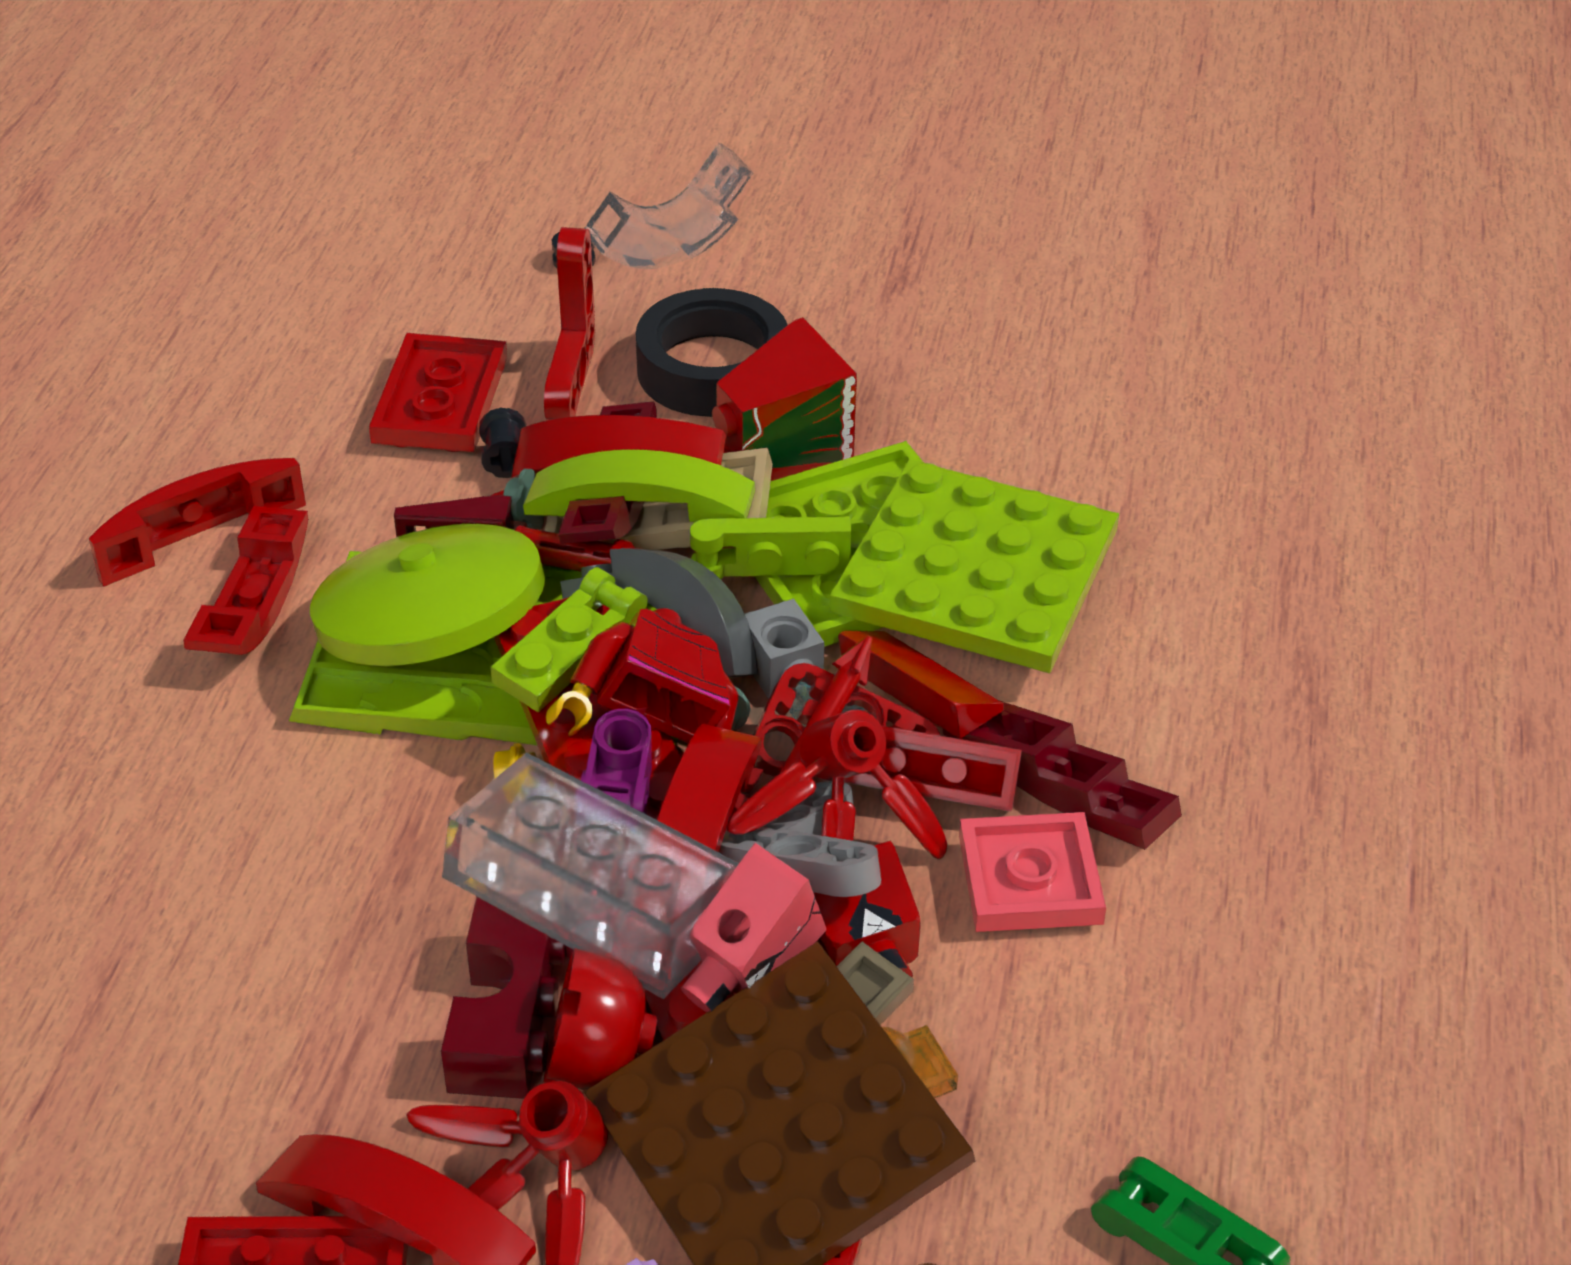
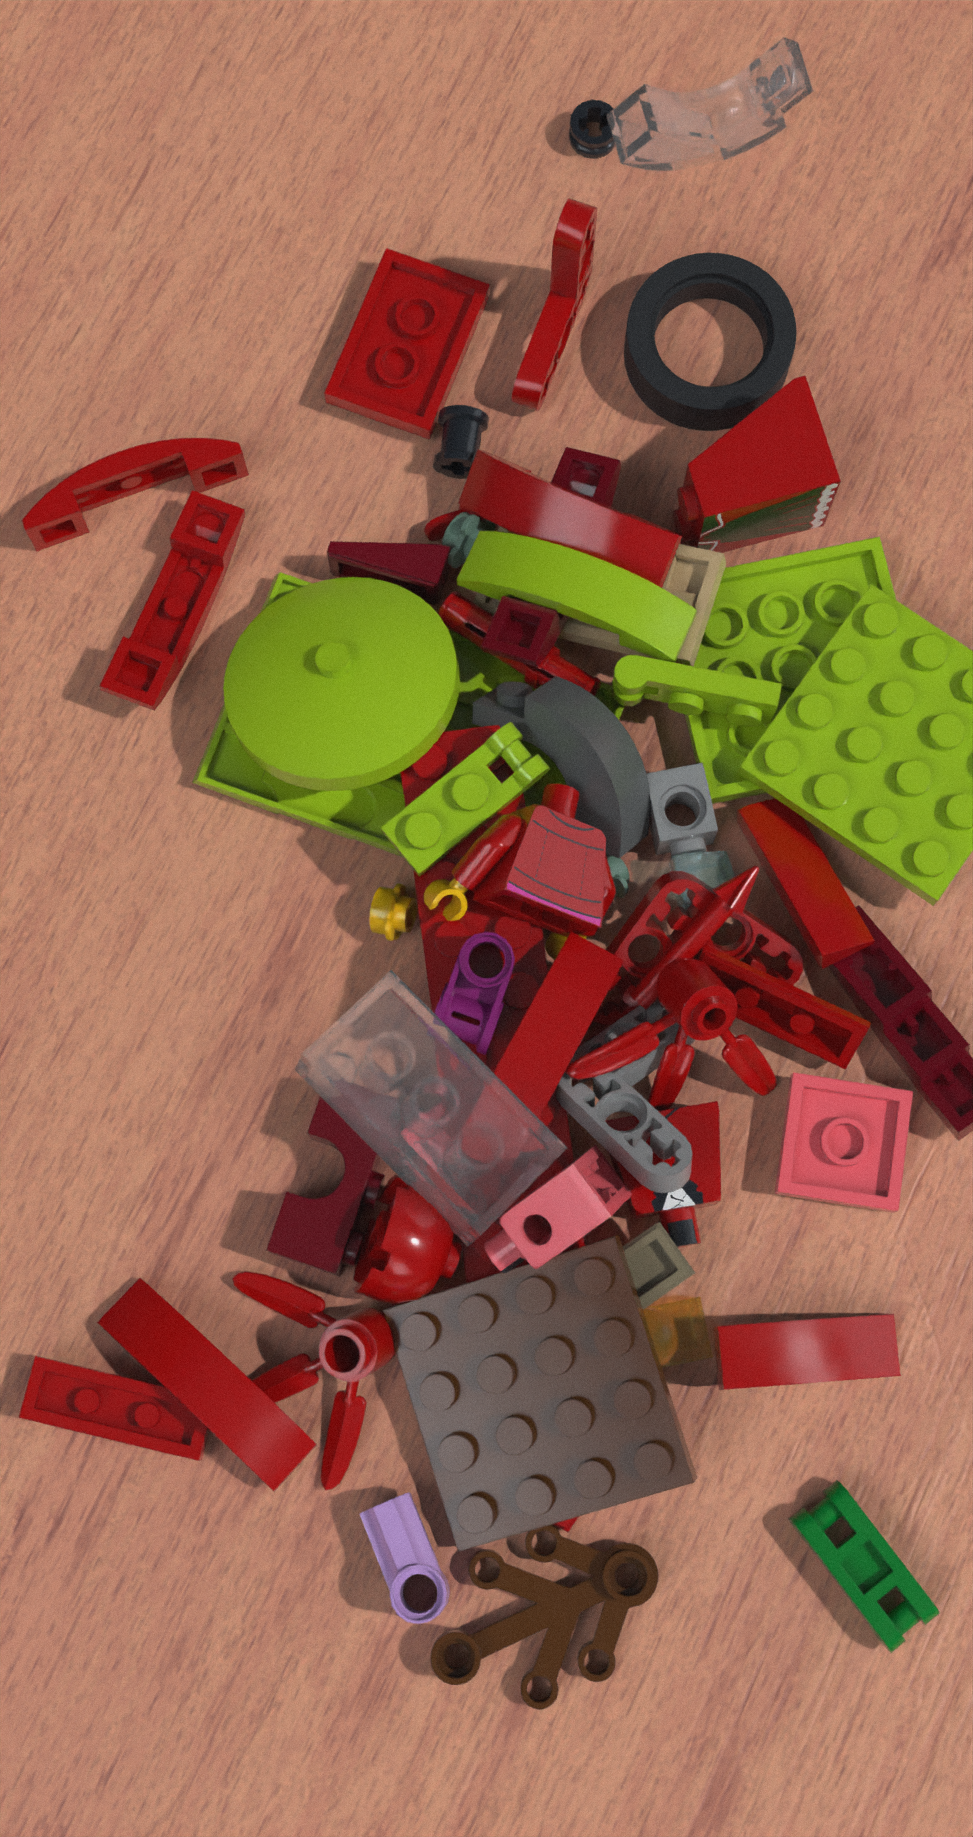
camera: 15 degrees right, 35 degrees up
(1049, 1047) = (806, 1351): none -> red slope

